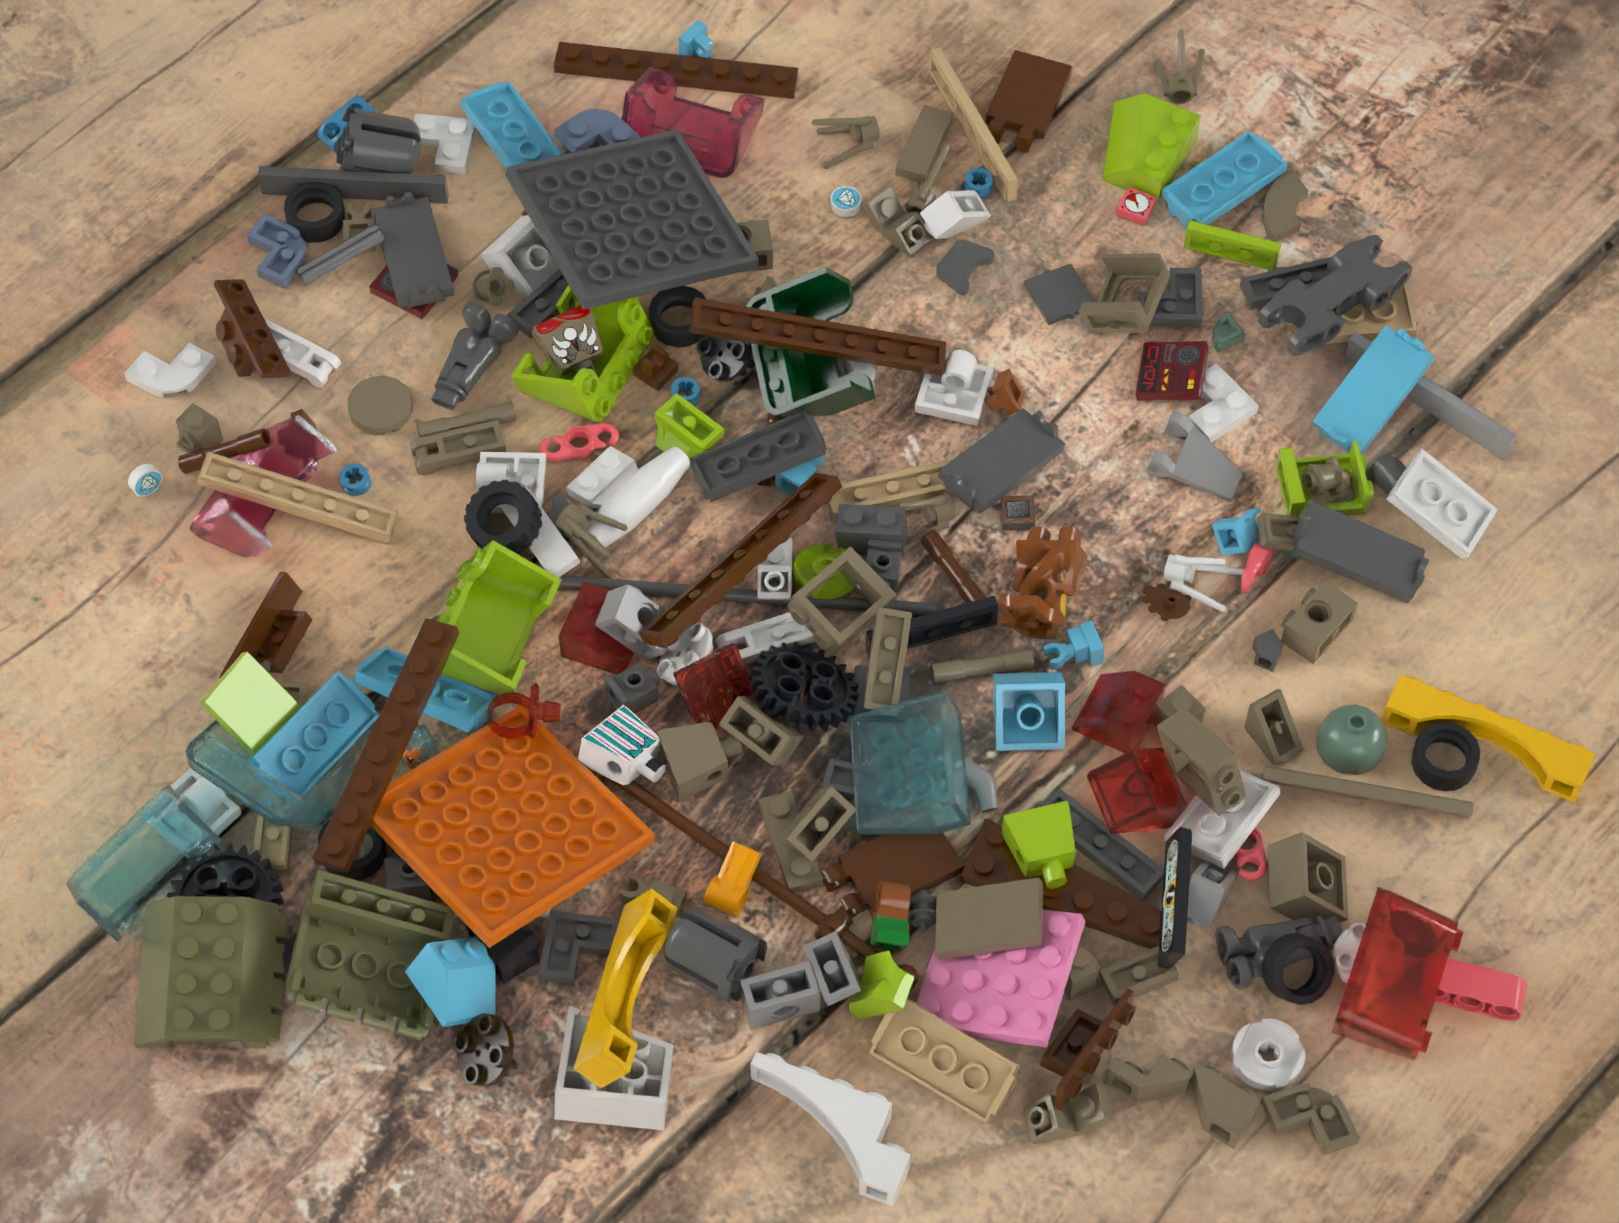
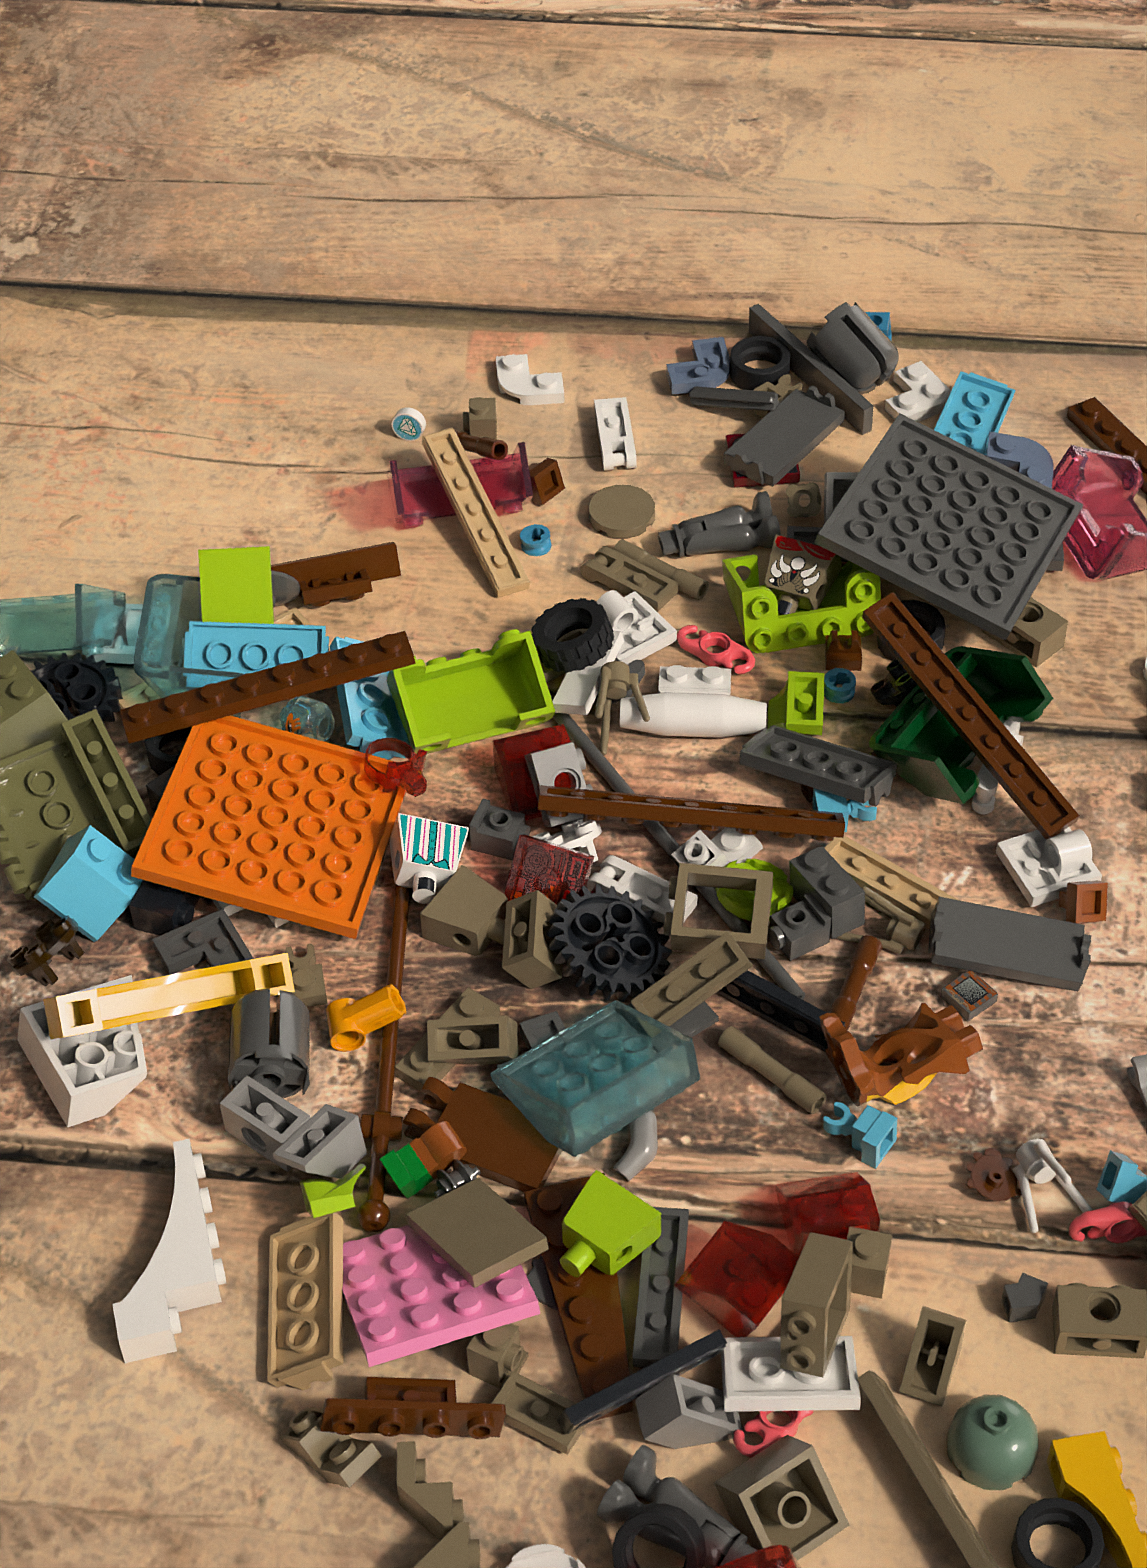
camera: 55 degrees right, 10 degrees down
(247, 333) = (602, 390): reddish brown bracket -> none
(1029, 711) = (754, 1134): medium azure slope -> none

